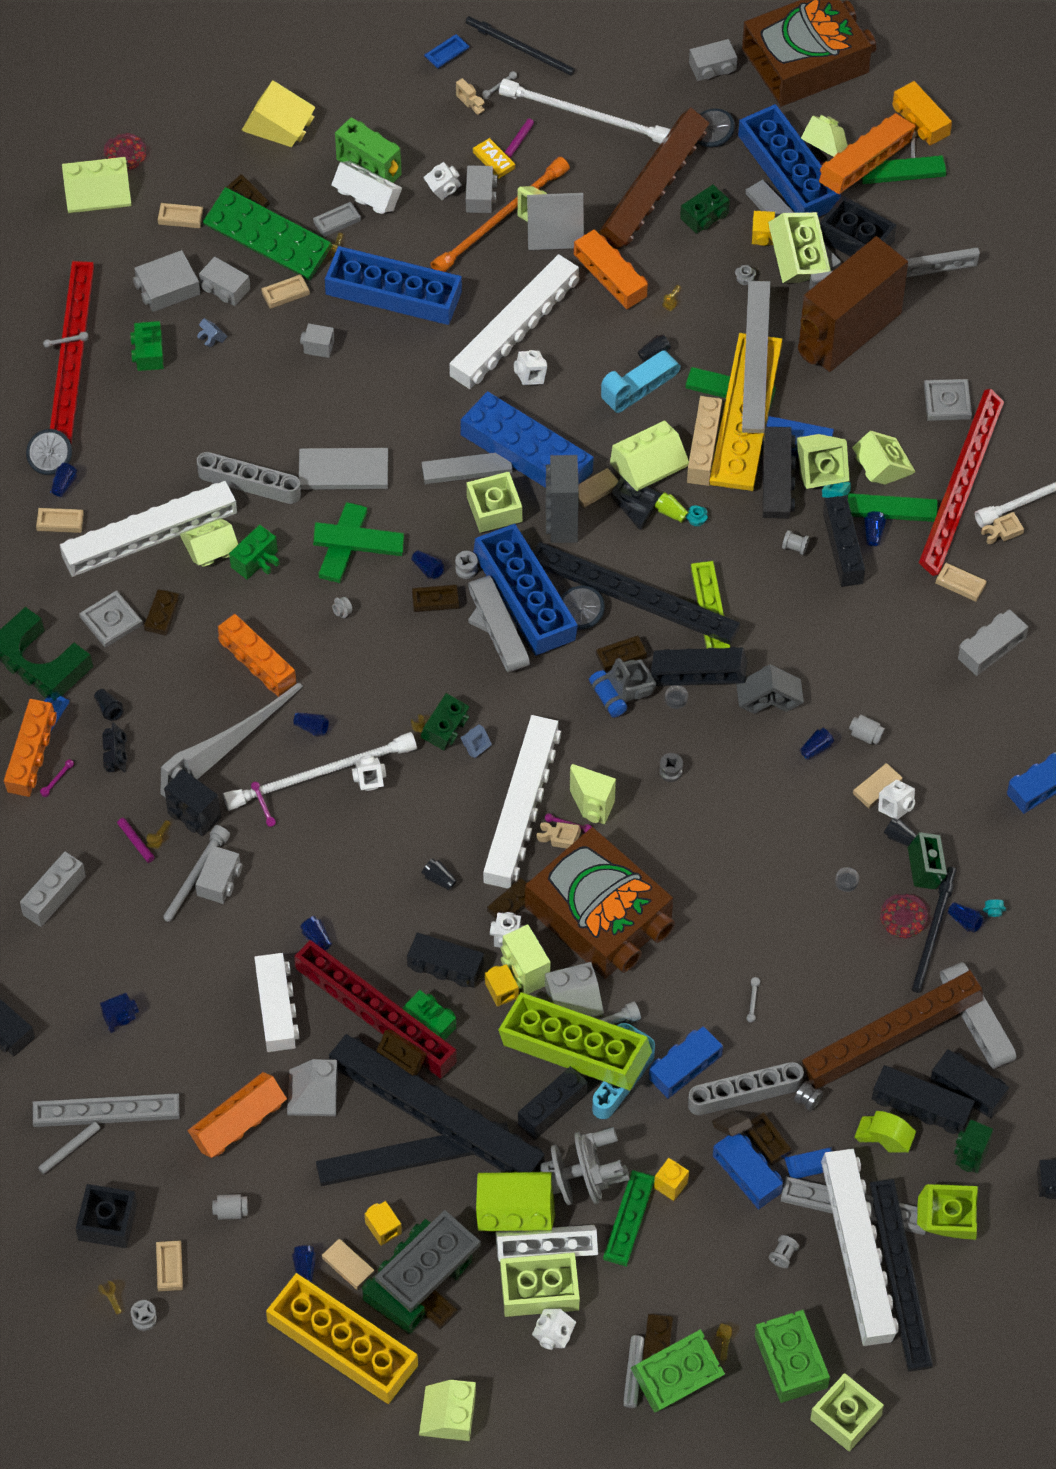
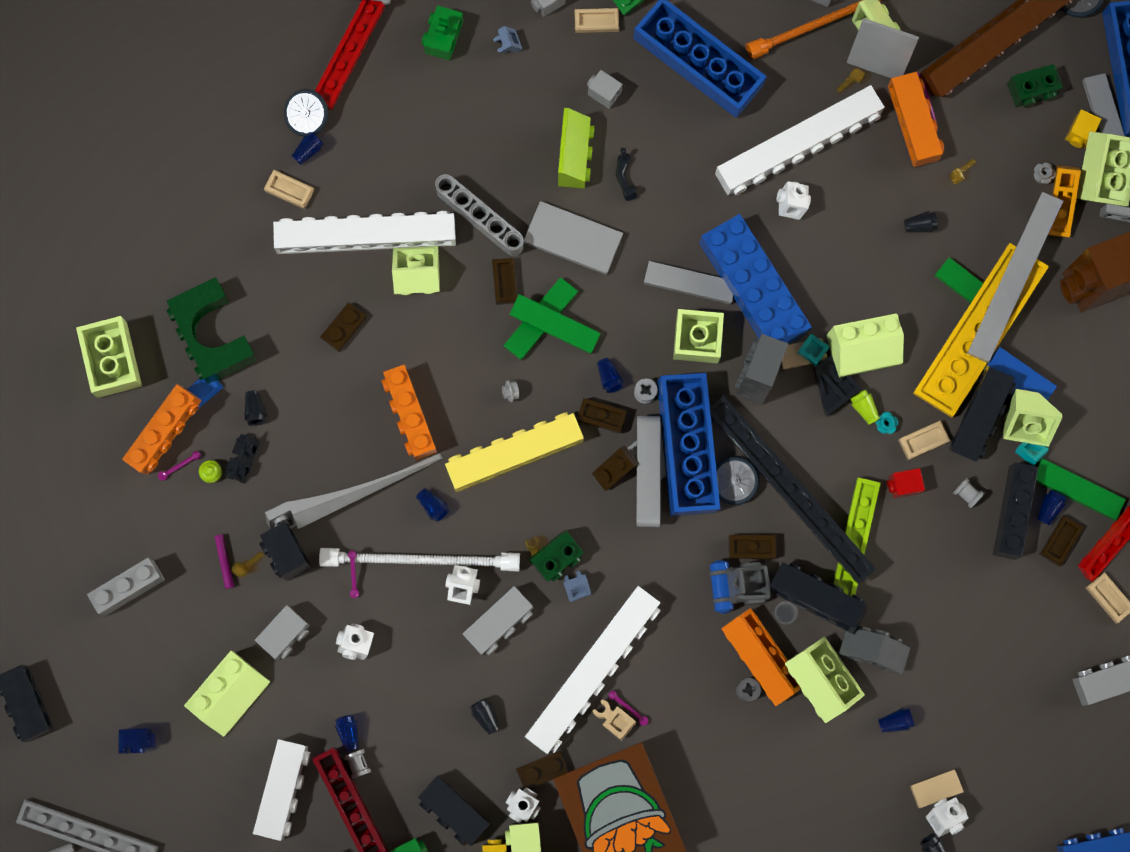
camera: 20 degrees right, 20 degrees up
(89, 770) = (210, 471): none -> lime plate
(111, 619) = (294, 315): light grey tile -> none
(188, 942) = (227, 693): none -> yellowish green slope
(217, 837) = (297, 593): light grey piece -> none
(254, 553) = (452, 299): green brick -> none
(290, 855) = (354, 642): none -> white brick
(296, 524) = (505, 280): none -> dark brown tile
(312, 395) = (575, 150): none -> lime slope
(338, 953) = (357, 763): none -> light grey bush
(361, 394) = (623, 161): none -> black piece
(368, 654) = (514, 452): none -> light yellow brick
(416, 794) = (499, 621): none -> light grey brick
(467, 631) = (615, 468): none -> dark brown plate
(541, 255) = (856, 75): none -> clear yellow hand
(592, 793) = (660, 696): yellowish green slope -> none
(603, 477) = (813, 349): none -> teal plate
(626, 390) = (873, 260): medium azure beam -> none
(671, 733) = (761, 656): none -> orange brick
(704, 440) = (927, 346): tan brick -> none
(734, 727) = (824, 679): none -> yellowish green brick
(736, 554) = (906, 483): none -> red brick
(737, 517) = (924, 440): none -> tan tile
(767, 270) = (1065, 189): none -> light orange slope
(866, 730) = (951, 726): light grey brick -> none
(882, 458) = (1091, 433): yellowish green slope -> none
(896, 553) = (1061, 540): none -> dark brown tile

